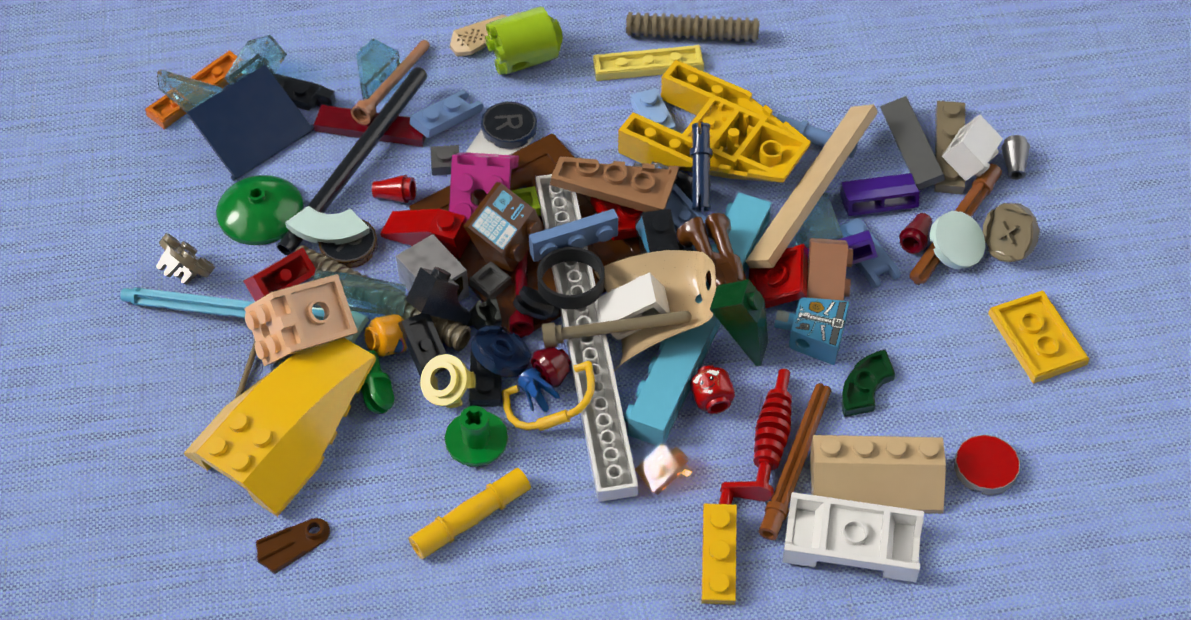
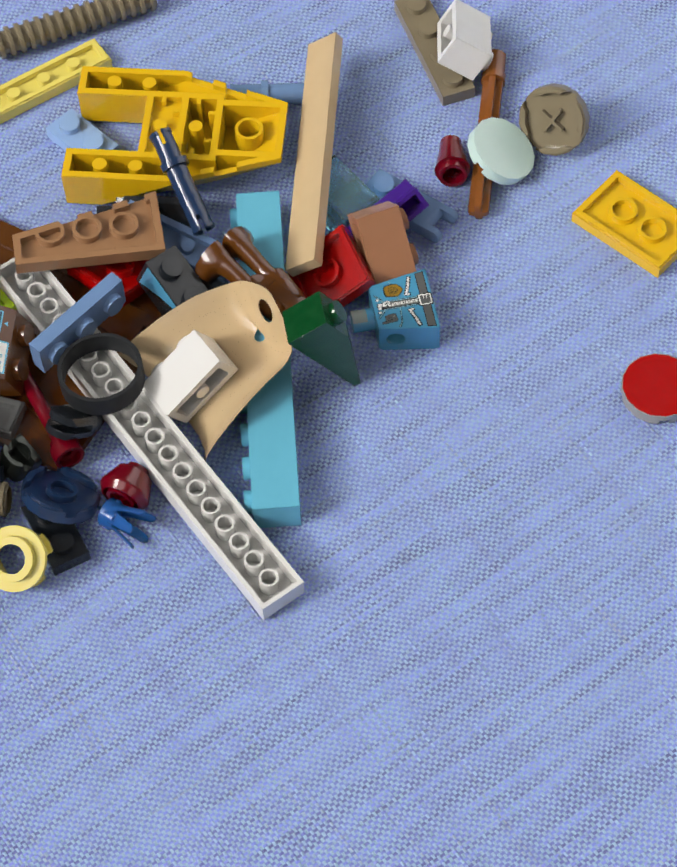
camera: 25 degrees left, 5 degrees up
(469, 513) = (125, 701): yellow piece -> none
(476, 437) = (85, 609): green piece -> none
(556, 334) = (117, 447): dark tan piece -> none
(556, 418) = (163, 549): yellow piece -> none
(663, 467) = (317, 548): clear orange bracket -> none
(712, 389) = (326, 434): red head -> none
(719, 554) = (432, 618): yellow plate -> none
(770, 440) = (418, 462): red piece -> none
(777, 509) = (466, 537): dark orange axle -> none
(853, 535) = (564, 531): white piece -> none
(864, 381) = (482, 352): dark green tile -> none
(879, 194) = (388, 133): dark purple piece -> none
(880, 470) = (553, 450): tan slope -> none
(912, 143) = (393, 60): dark grey tile -> none
(1016, 155) = (510, 29): flat silver cone -> none

